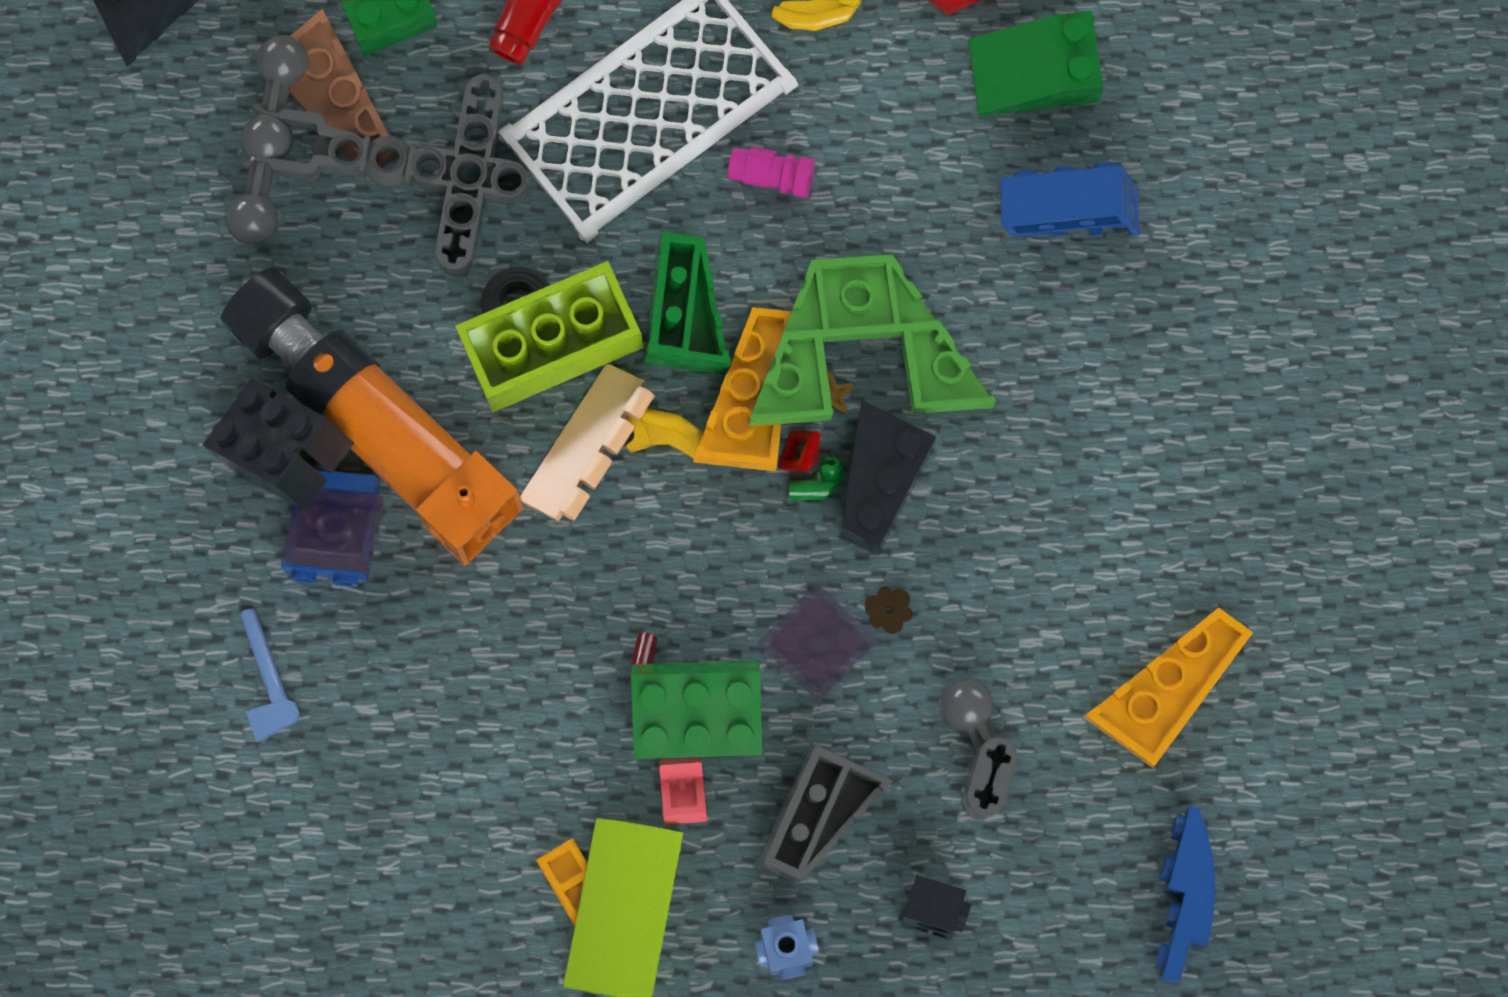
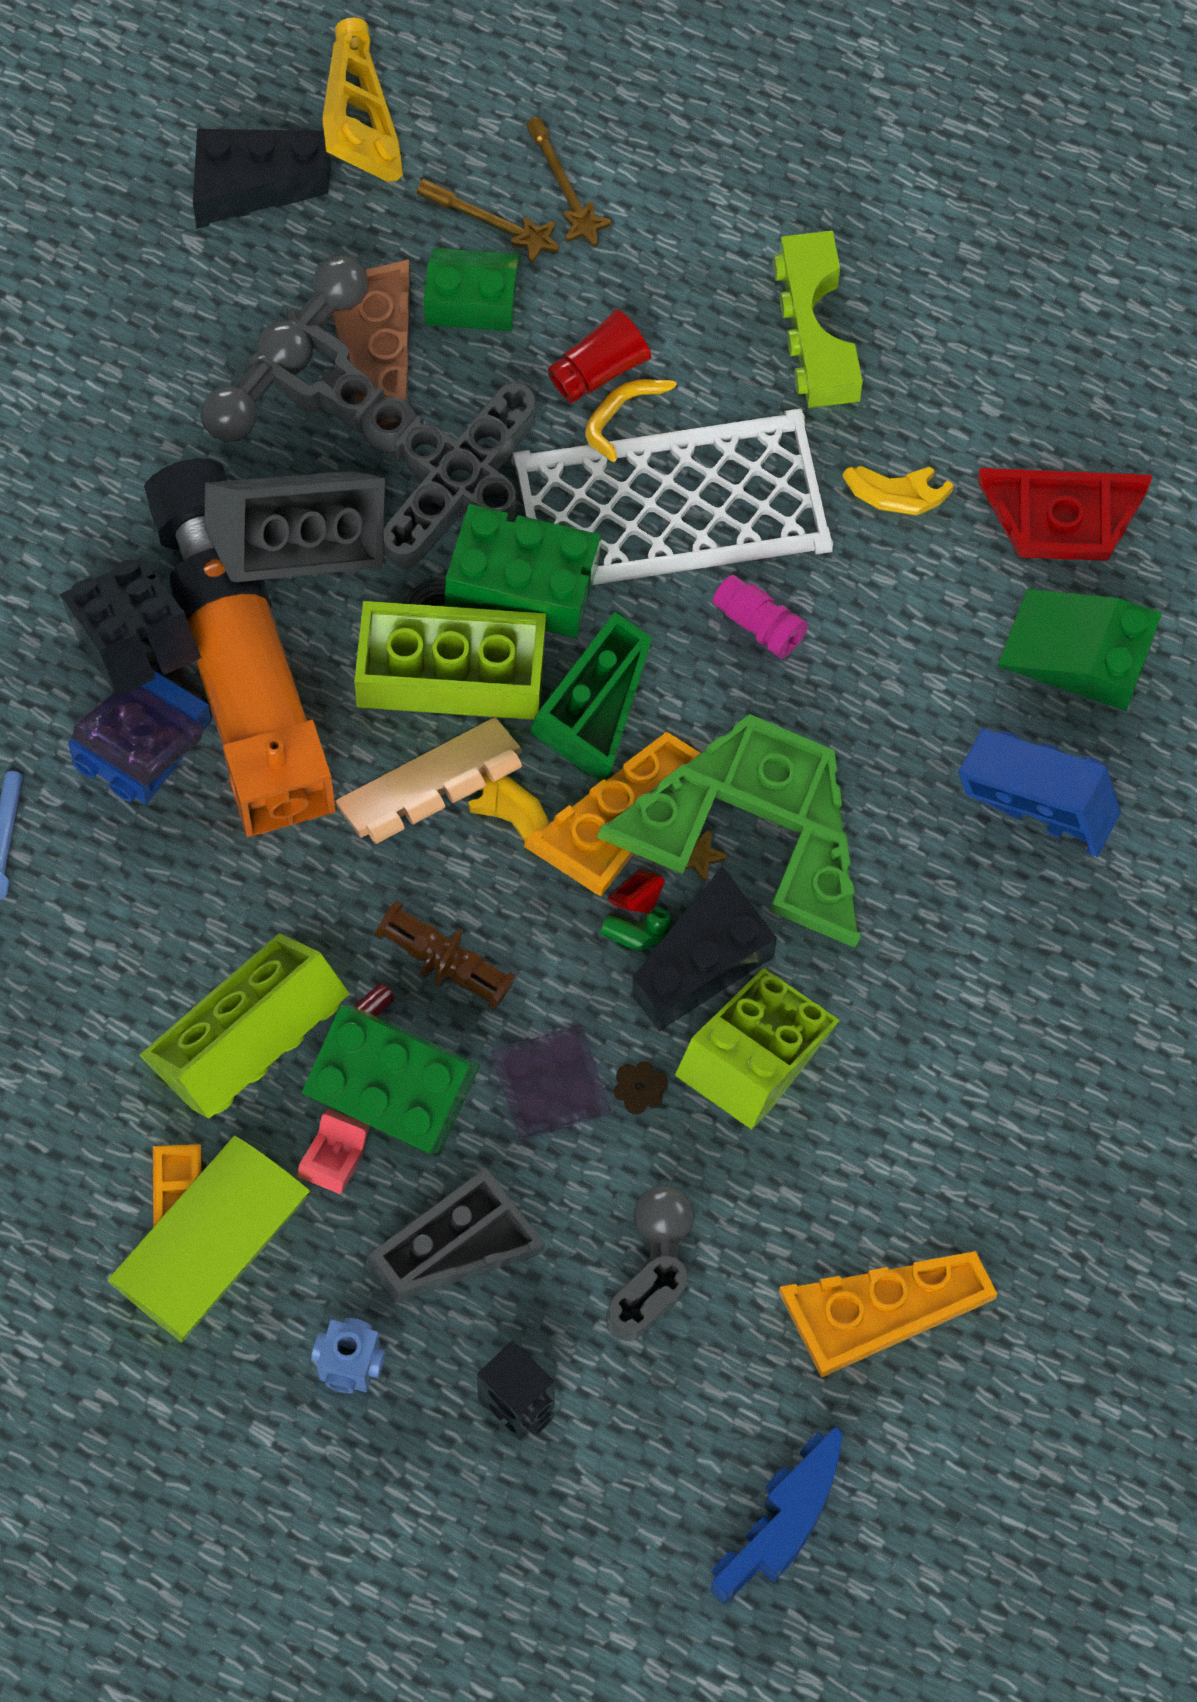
camera: 25 degrees right, 10 degrees down
(364, 288) = (296, 524): none -> dark grey slope
(553, 722) = (246, 1024): none -> lime slope
(554, 52) = (611, 405): none -> yellow animal
(567, 231) = (523, 568): none -> green piece
(681, 584) = (445, 954): none -> reddish brown piece
(963, 530) = (755, 1047): none -> lime slope

